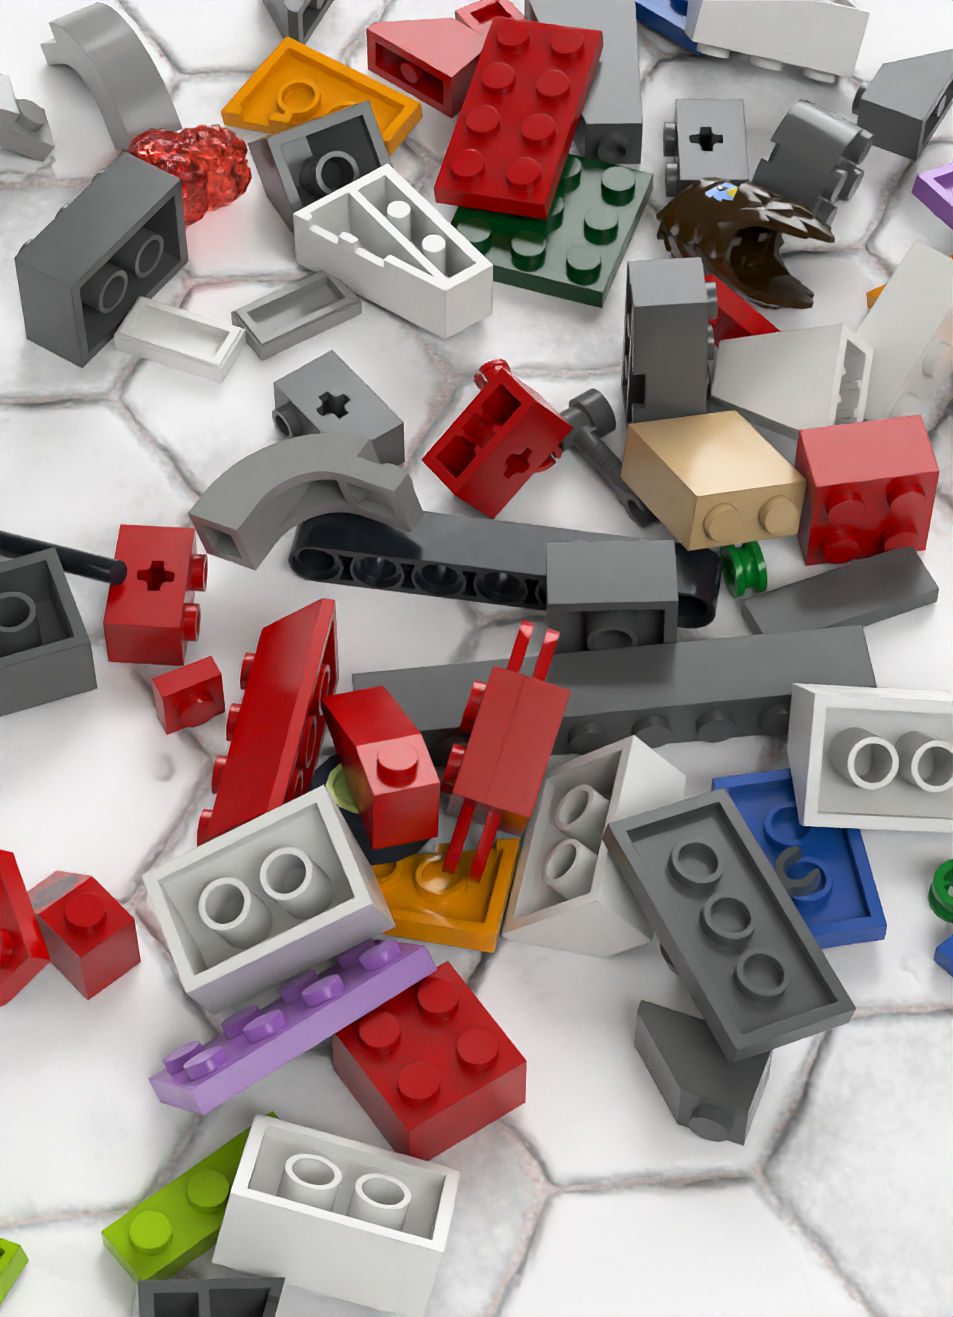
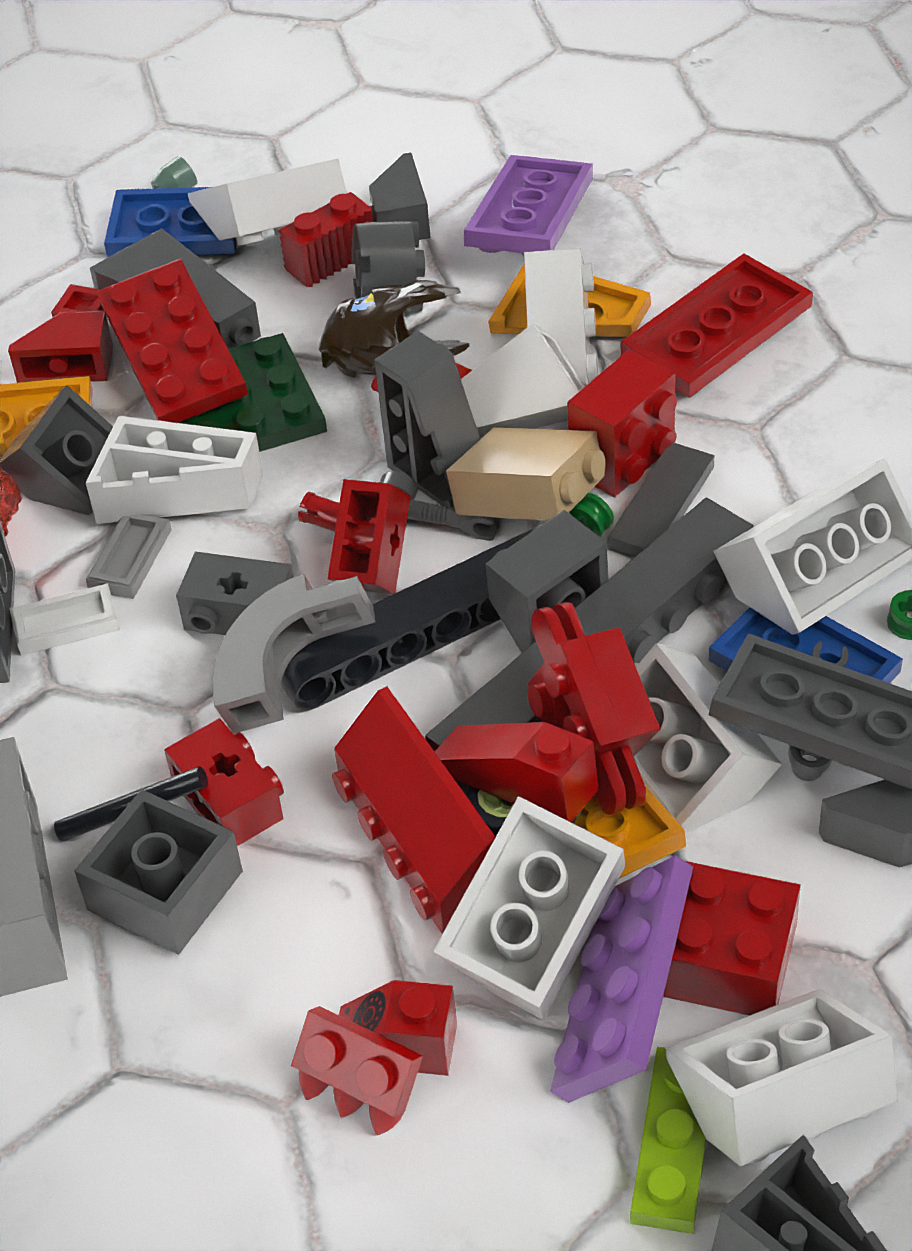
camera: 35 degrees left, 5 degrees down
(189, 695) = (319, 829): red plate -> none
(705, 143) = (303, 297): brick -> none
(776, 83) = (322, 239): none -> red brick

